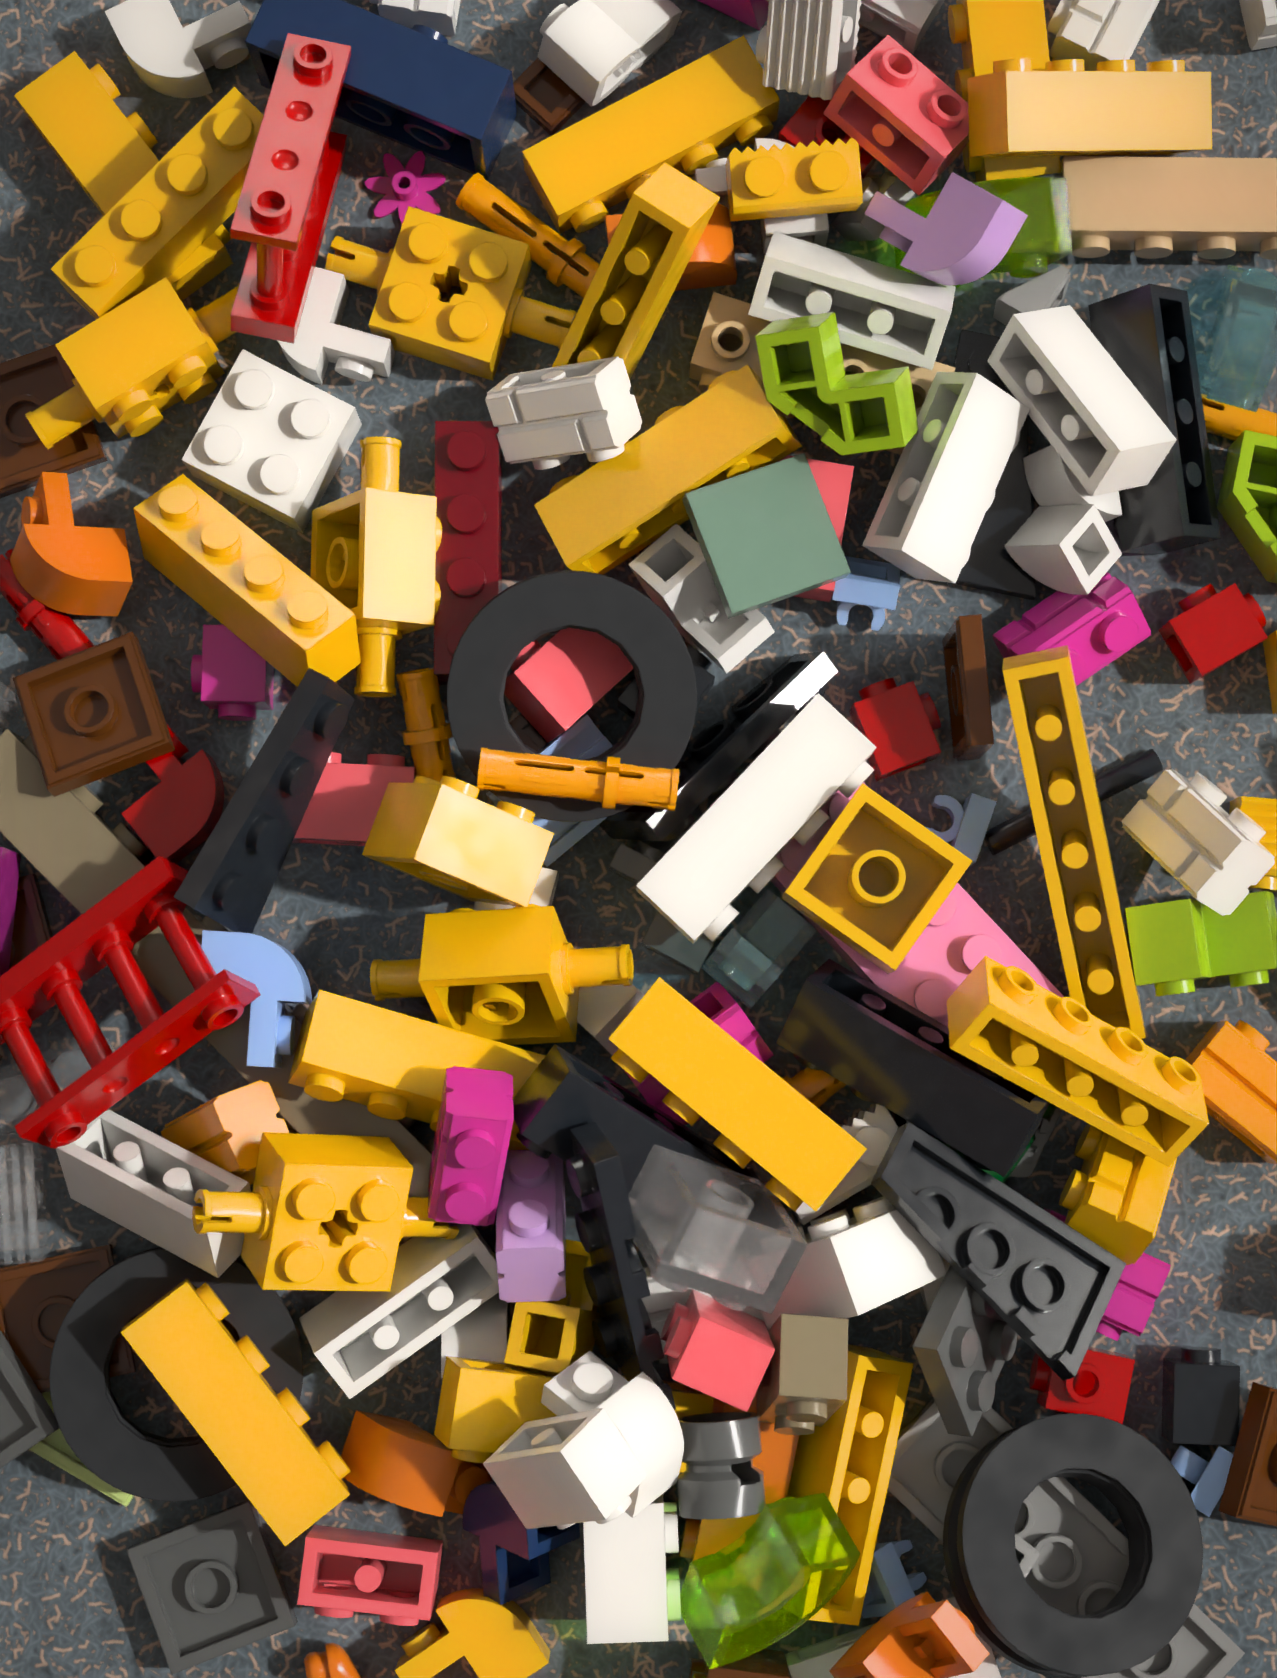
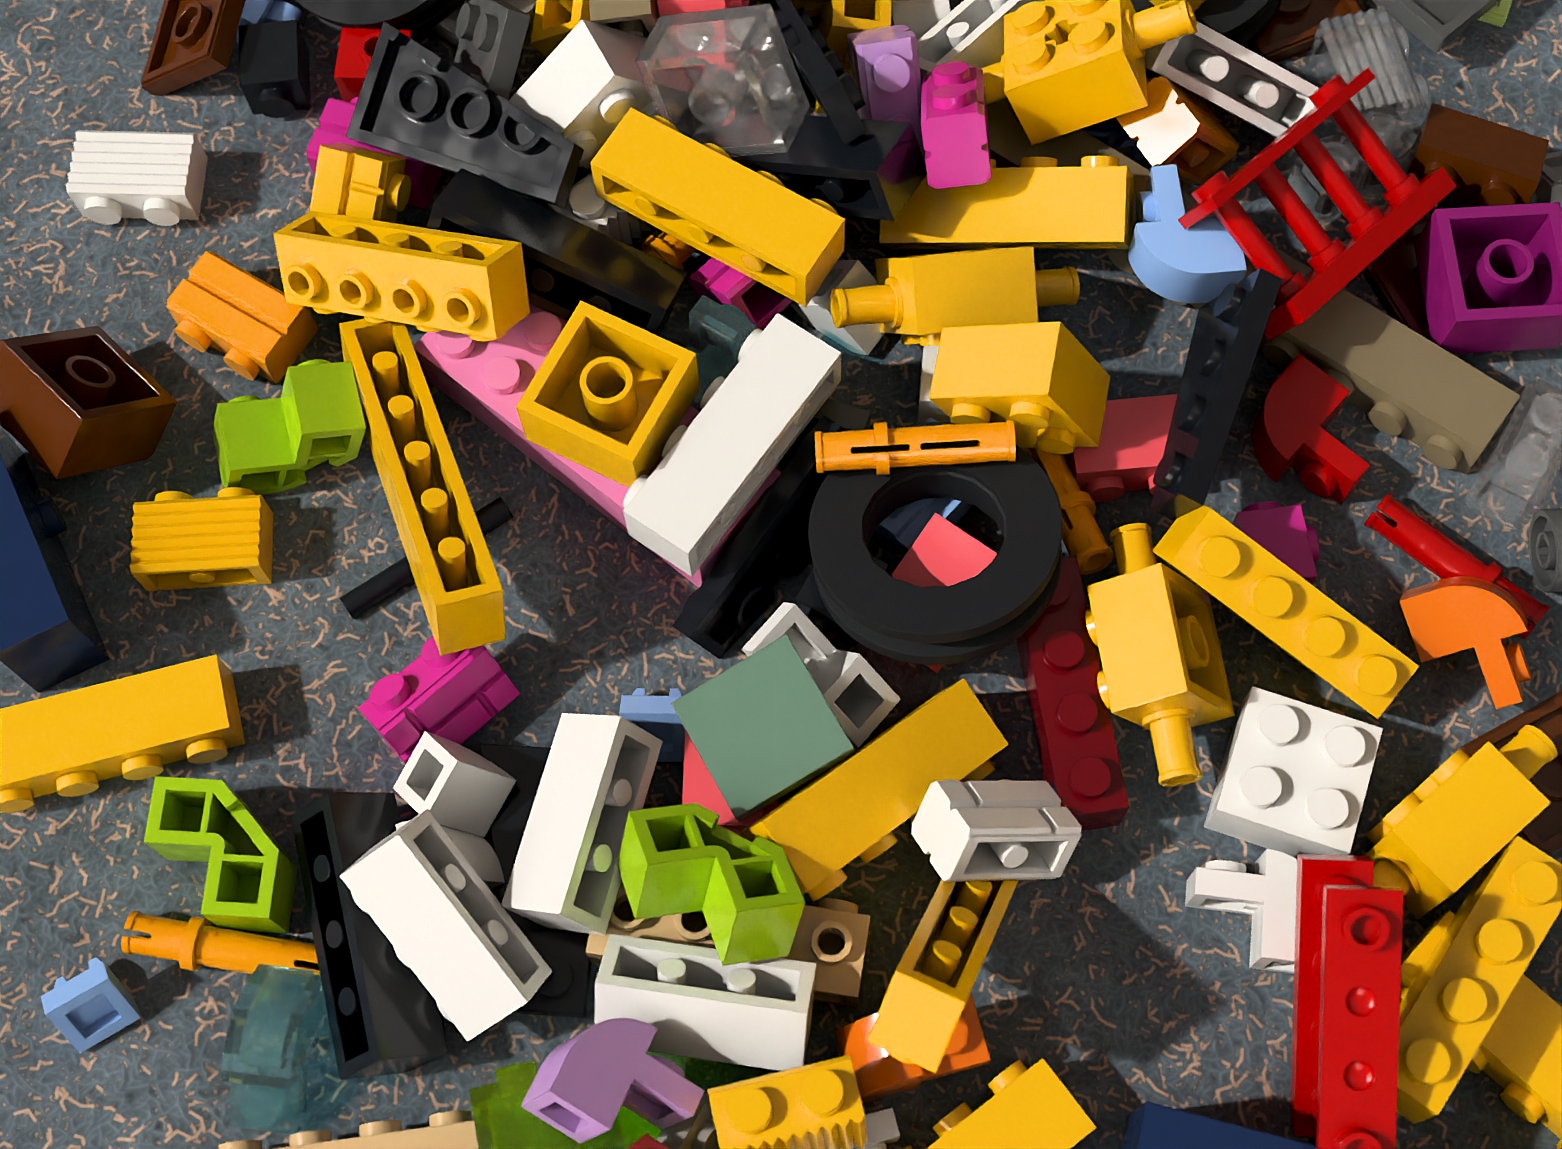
camera: 175 degrees right, 15 degrees down
(93, 714) = (1402, 474): reddish brown tile -> none
(401, 198) = (1224, 1076): dark pink plant -> none
(432, 258) = (1177, 937): yellow brick -> none
(485, 201) = (1061, 1046): light orange pin -> none
(898, 725) = (608, 591): red brick -> none
(967, 822) = (527, 505): light blue tile -> none
(968, 688) = (538, 622): reddish brown tile -> none
(1037, 294) = (507, 1045): light grey slope -> none
(1198, 841) = (297, 510): white brick -> none
(1213, 629) = (293, 731): red brick -> none

